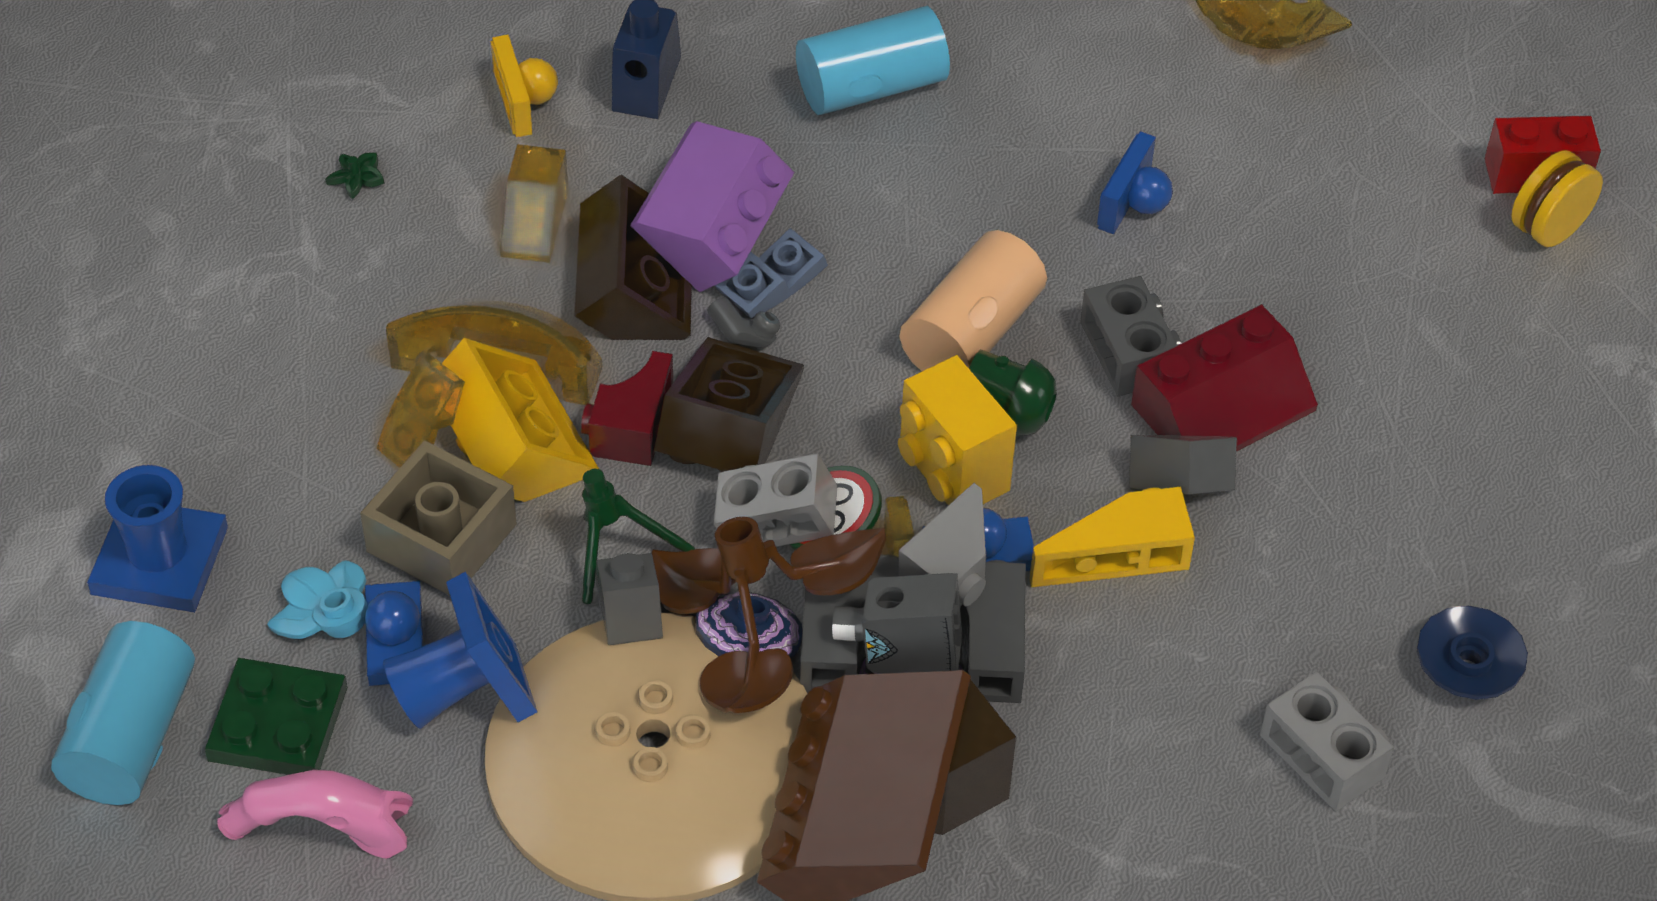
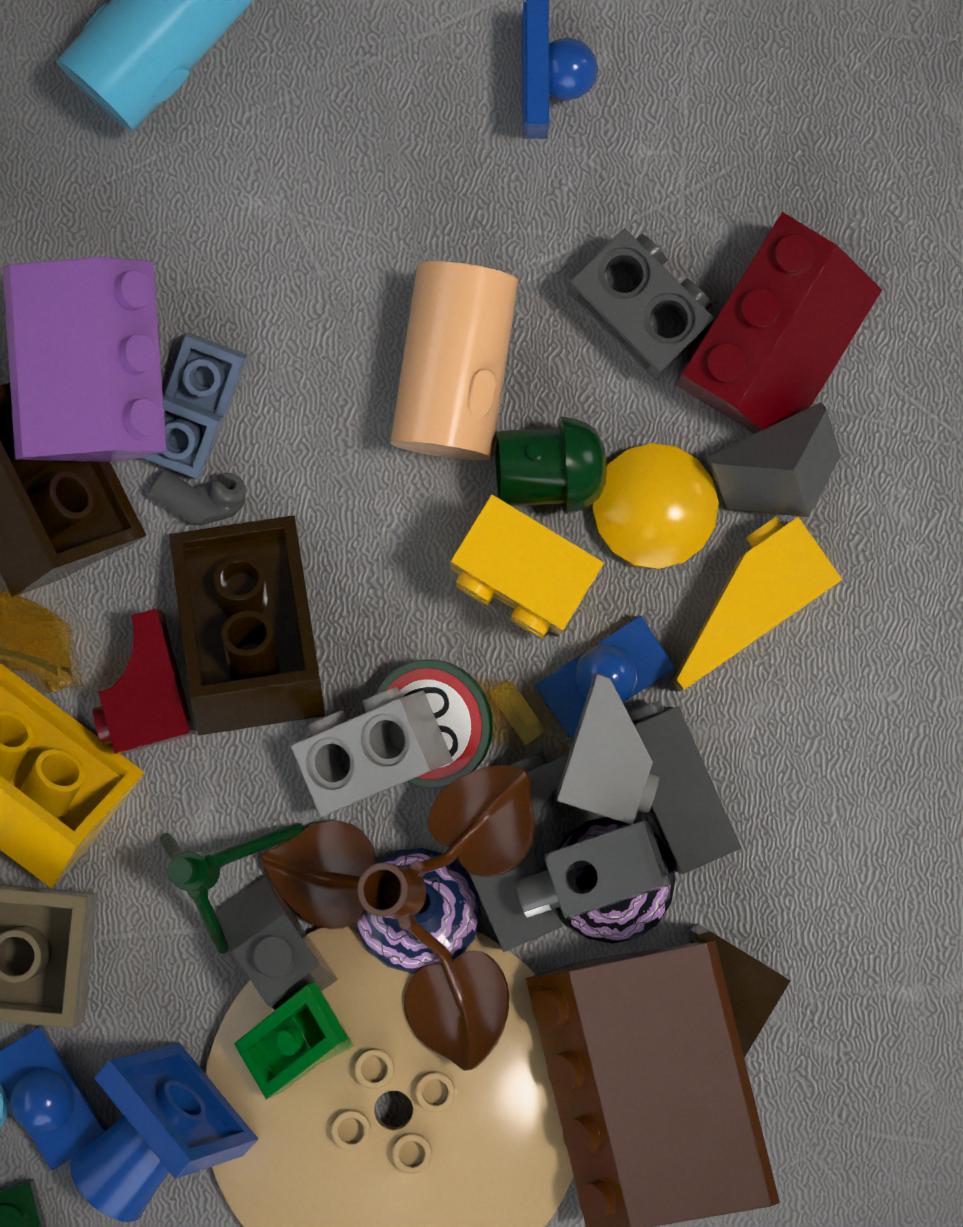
camera: 30 degrees left, 35 degrees up
(610, 633) = (293, 1041): none -> green slope
(1075, 462) = (656, 506): none -> yellow dish

